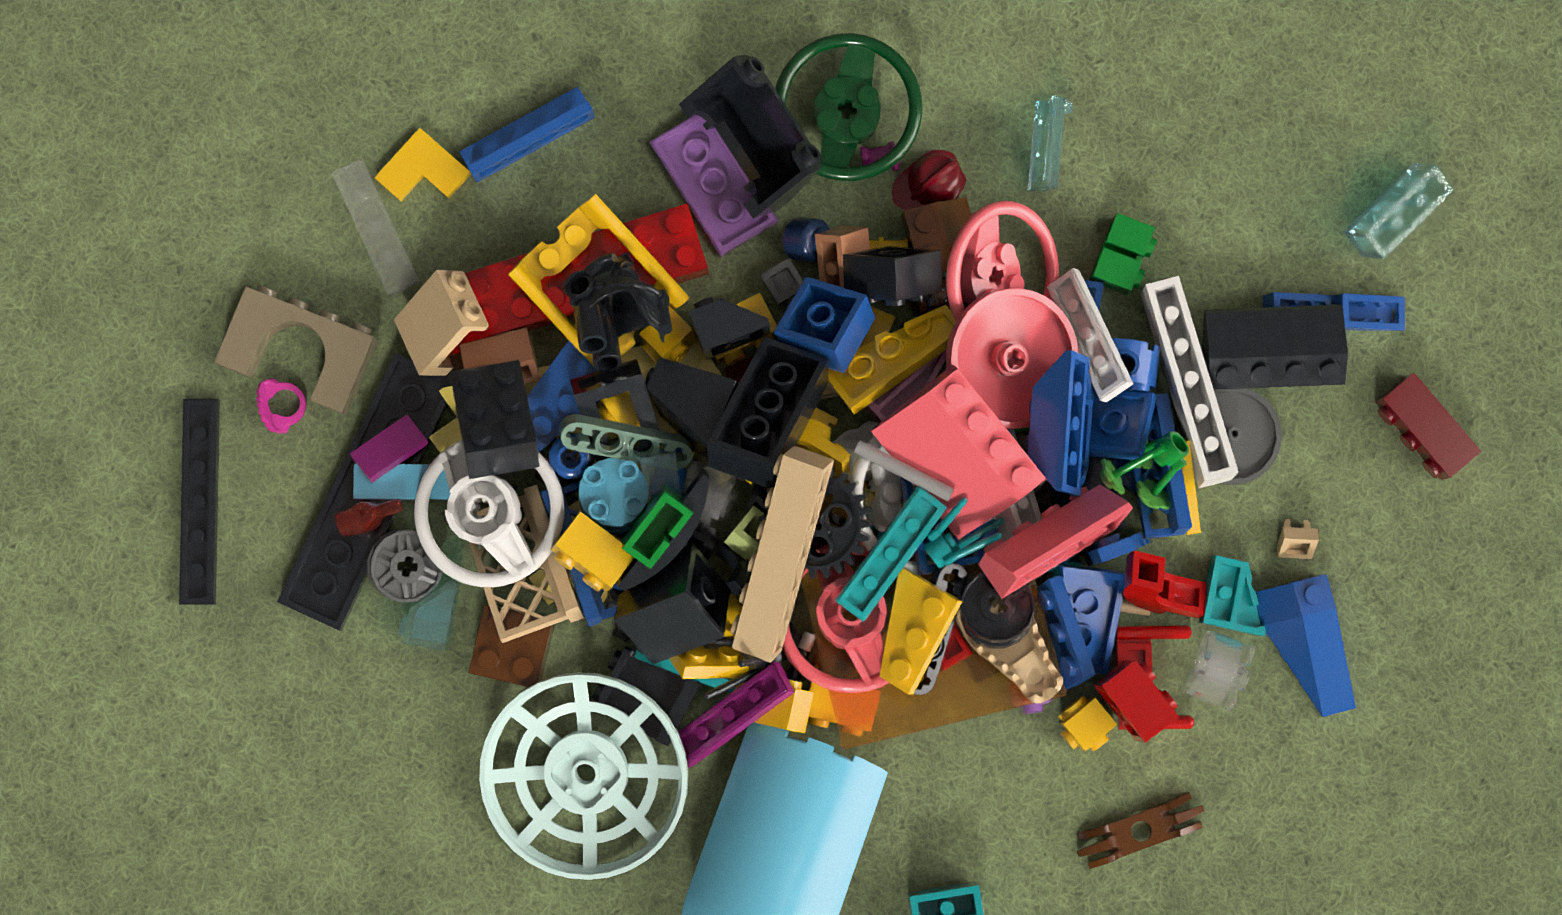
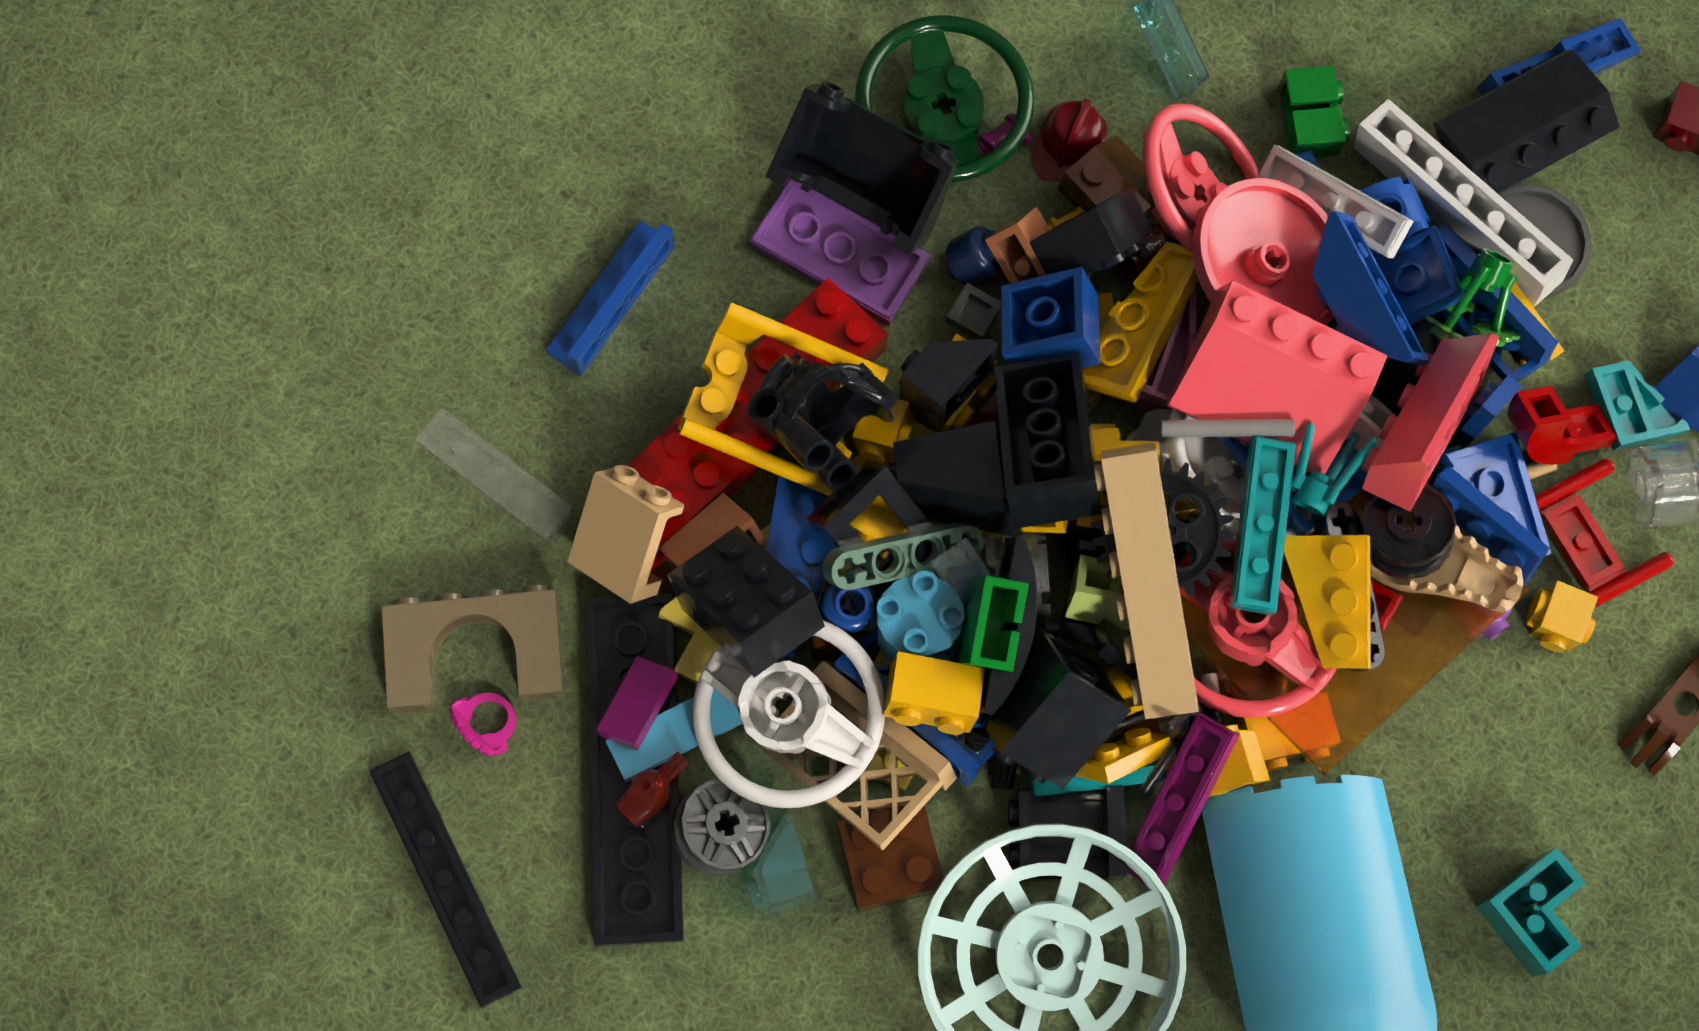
camera: 25 degrees left, 10 degrees down
(419, 159) = (506, 379): yellow tile -> none
(1137, 700) = (1607, 555): red brick -> none
(1297, 541) = (1665, 313): tan tile -> none

